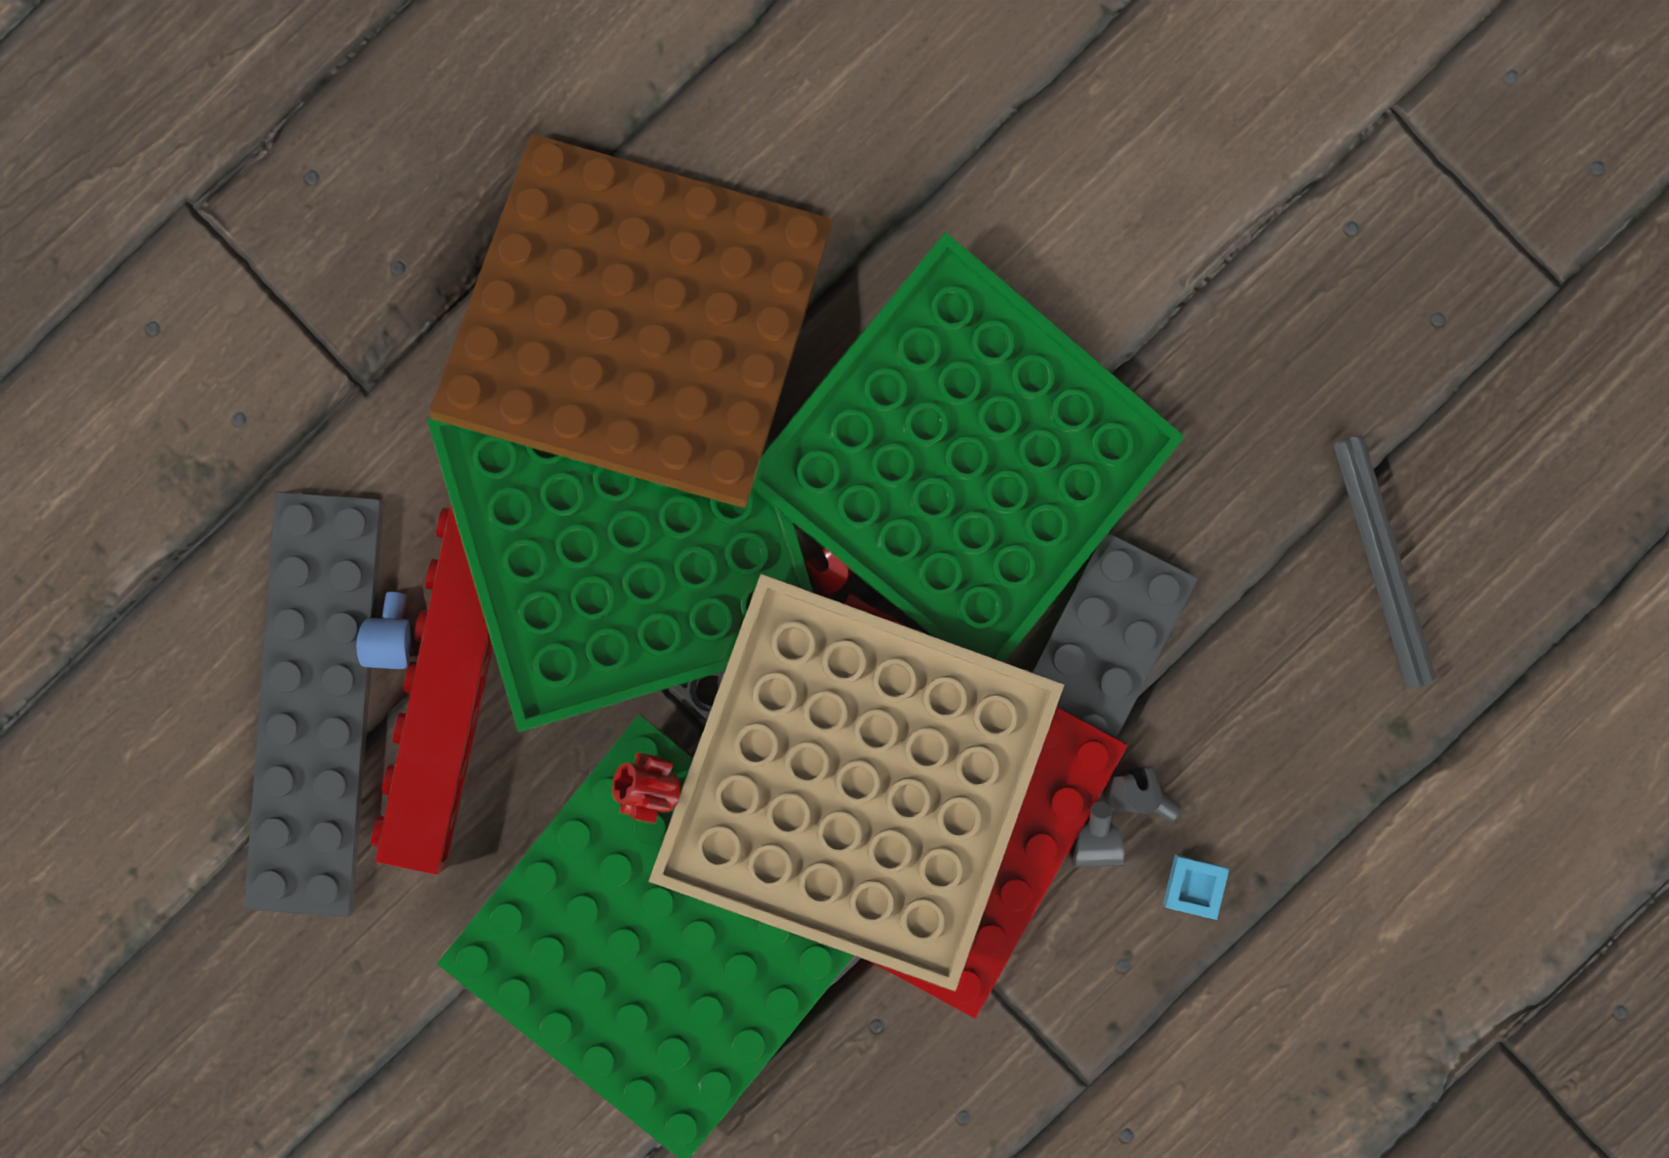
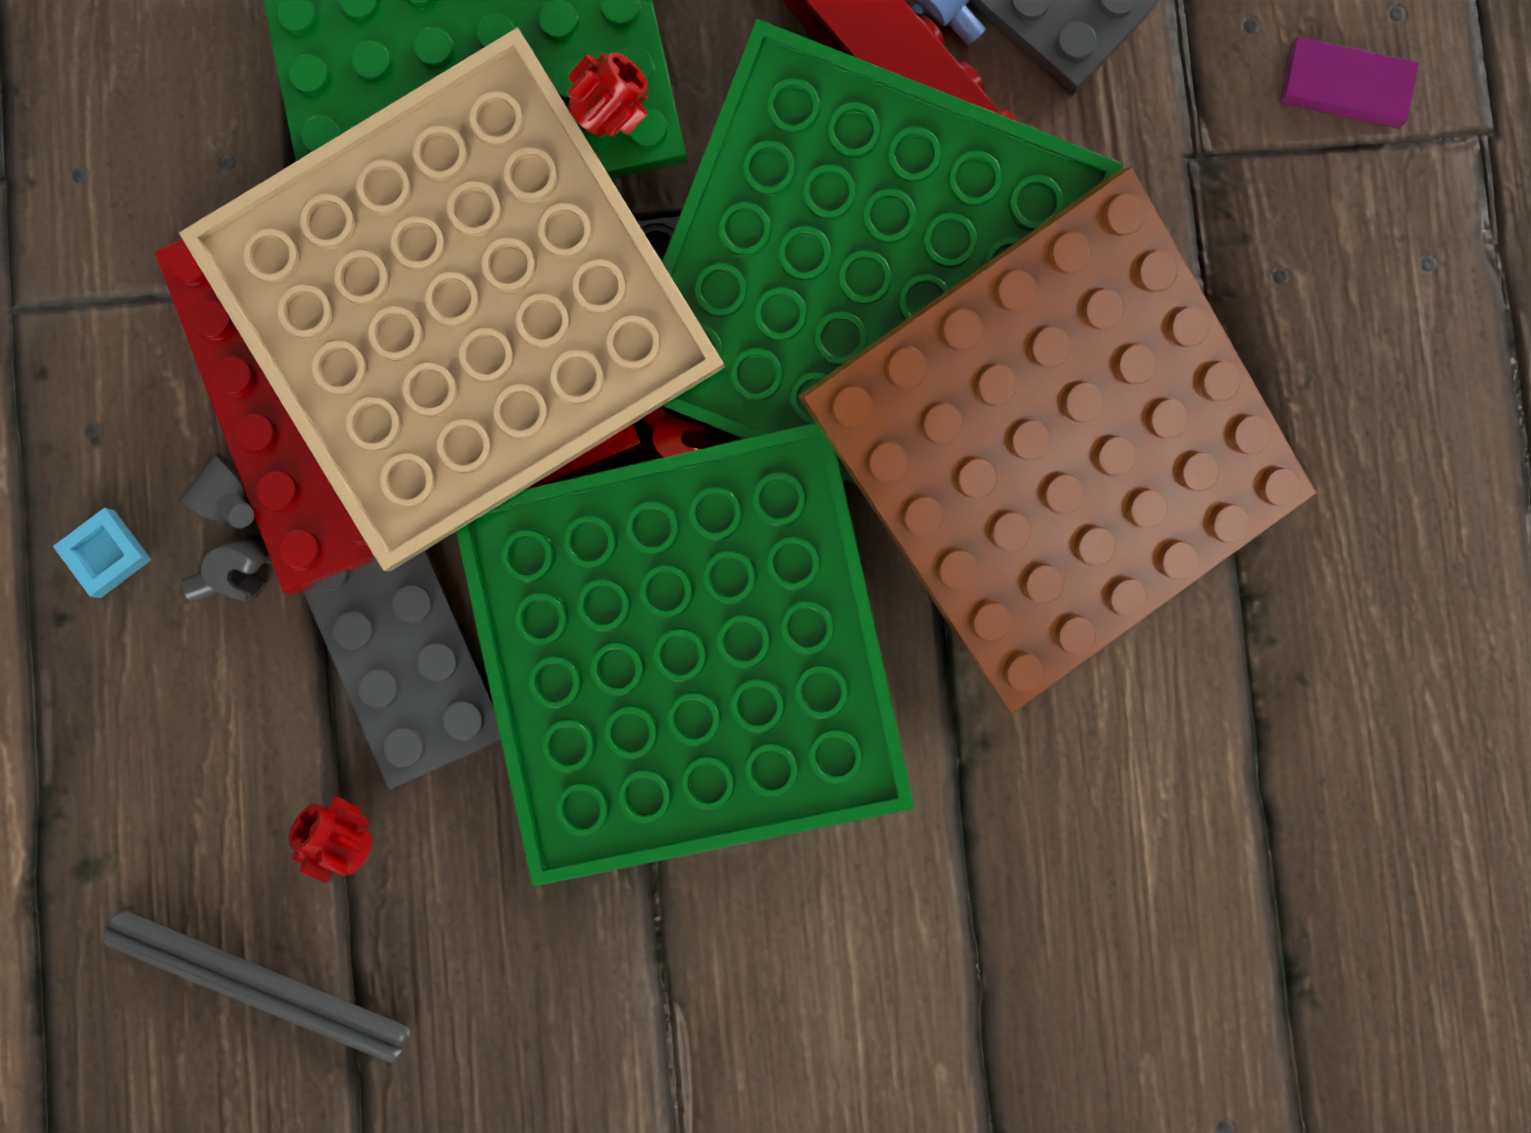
camera: 130 degrees right, 5 degrees down
(230, 322) = (1349, 82): none -> magenta tile
(1257, 588) = (330, 839): none -> red gear

